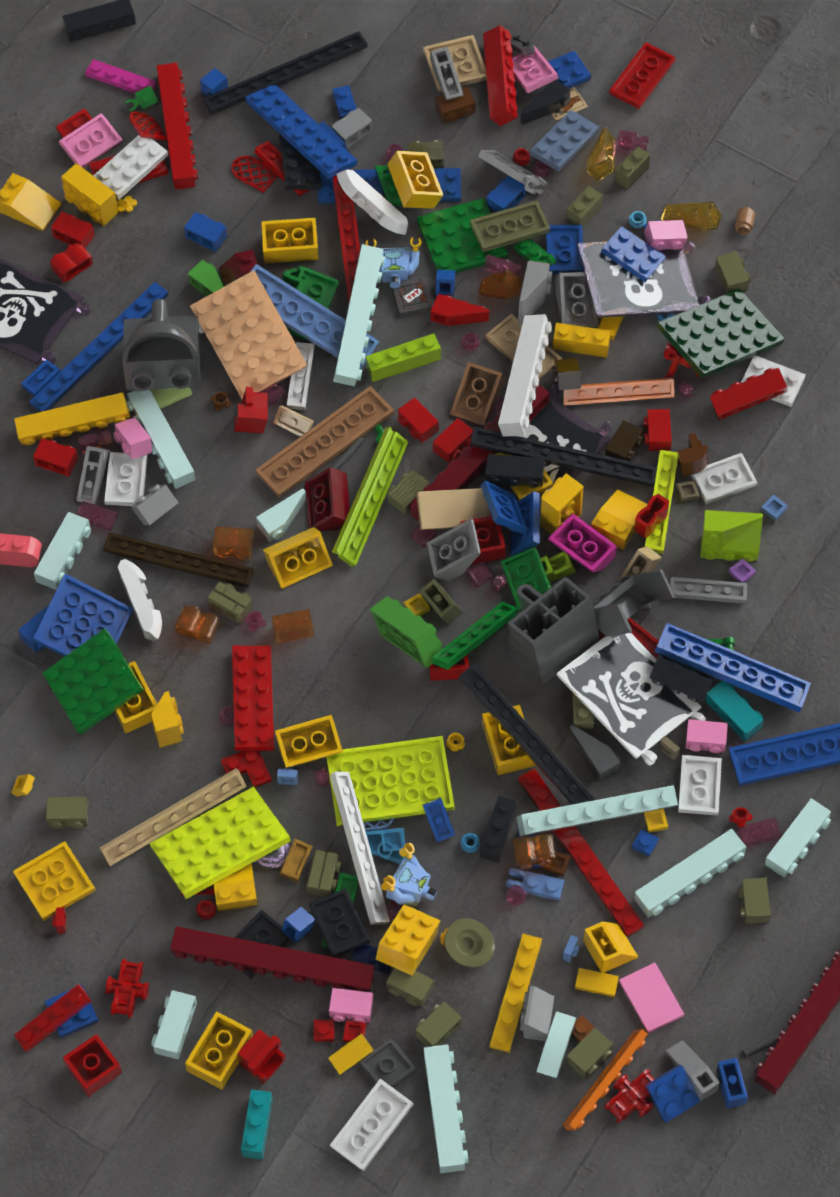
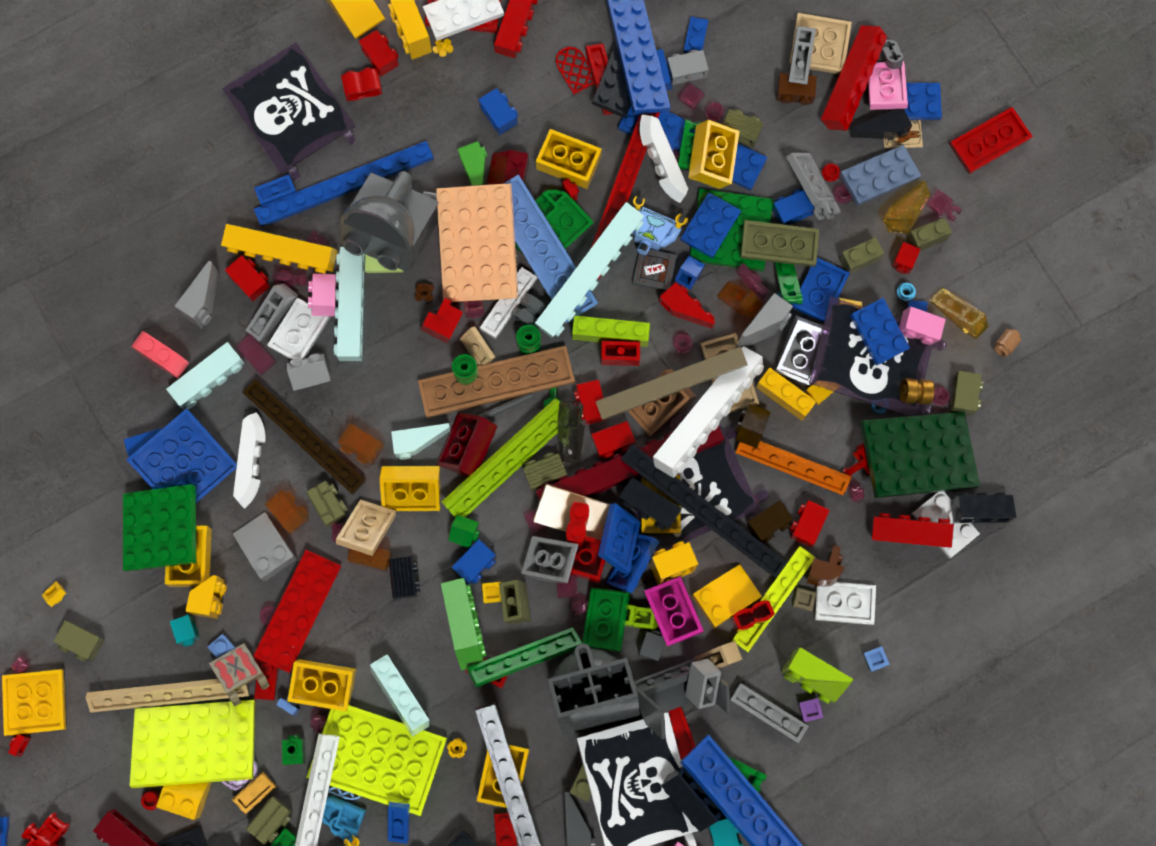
camera: 25 degrees right, 15 degrees up
(22, 493) = (199, 298): none -> light grey slope
(24, 856) = (20, 665): none -> clear pink plate
(159, 759) = (184, 630): none -> teal brick
(194, 662) = (264, 547): none -> light grey slope
(200, 760) = (221, 646): none -> medium blue plate
(226, 765) = (237, 670): none -> flag
(277, 600) = (366, 527): none -> tan plate
(294, 438) = (465, 369): none -> green wheel
(304, 261) = (570, 188): none -> red plate
(312, 809) = (293, 751): none -> green brick
(322, 373) = (528, 310): none -> dark grey wheel
(331, 629) = (403, 577): none -> black brick
(335, 394) = (528, 339): none -> green wheel
(365, 568) = (464, 531): none -> green brick
(368, 149) = (691, 96): none -> clear pink plate
(382, 718) = (399, 695): none -> light aqua brick
(388, 584) = (475, 562): none -> blue brick
(413, 448) = (570, 431): none -> clear smoke slope
(421, 370) = (620, 353): none -> red brick
(442, 238) = (710, 225): none -> blue plate
(461, 505) = (578, 520): none -> red brick
(479, 368) = (671, 383): none -> dark tan tile
(581, 579) = (652, 646): none -> dark grey brick
(622, 193) = (906, 258): none -> red brick
(639, 584) = (703, 683): none -> light grey brick
(693, 284) = (914, 391): none -> pearl gold wheel
(712, 282) = (945, 396): none -> clear pink plate
(797, 351) = (983, 508): none -> black brick

